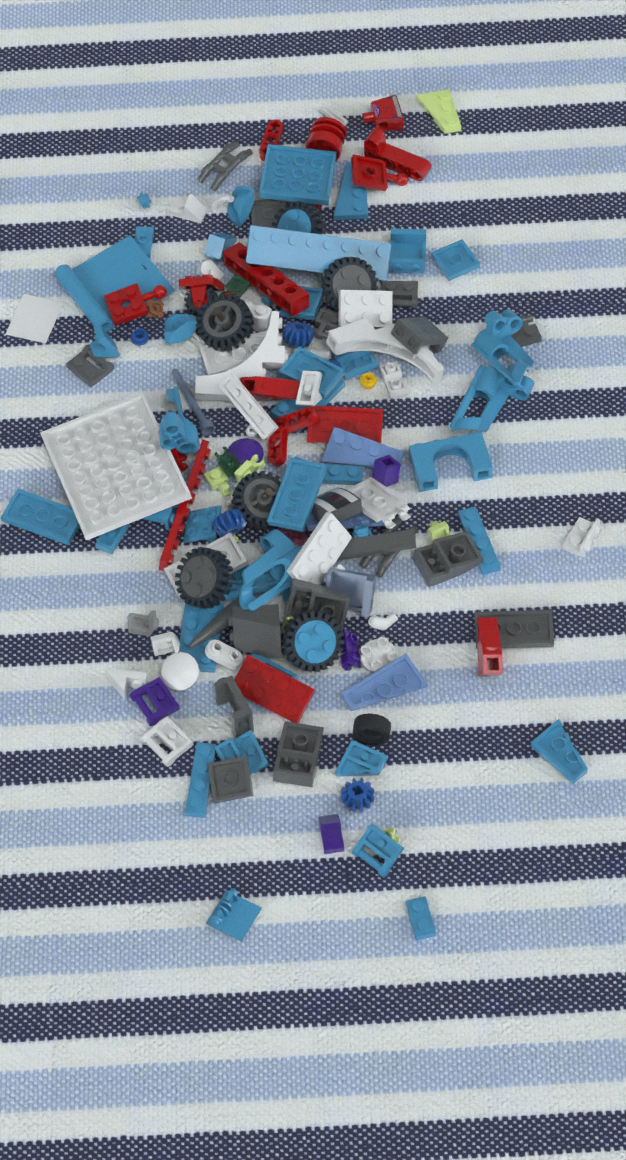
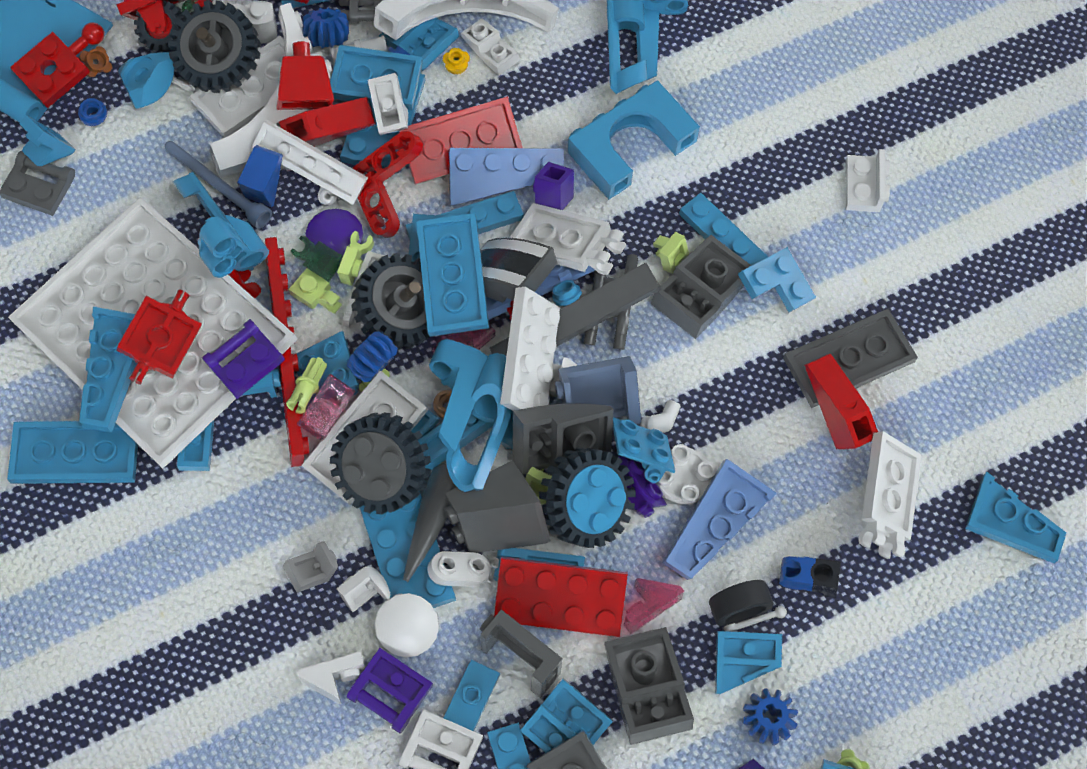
camera: 30 degrees left, 10 degrees up
(87, 470) = (106, 370): none -> dark azure wing
(115, 468) = (159, 337): none -> red plate
(156, 501) = (249, 365): none -> dark purple plate
(186, 525) = (307, 384): none -> yellowish green axle
(193, 539) = (325, 407): none -> clear pink slope
(199, 721) = (472, 695): none -> dark azure plate
(216, 404) = (261, 176): none -> blue slope
(264, 358) = (303, 81): none -> red torso
(327, 713) = (657, 599): none -> clear pink slope
(362, 628) = (645, 446): none -> dark azure hinge
(395, 747) = (779, 612): none -> white hinge
(423, 733) = (810, 575): none -> leg
(492, 707) = (890, 495): none -> white tile
(496, 566) = (781, 273): none -> dark azure plate

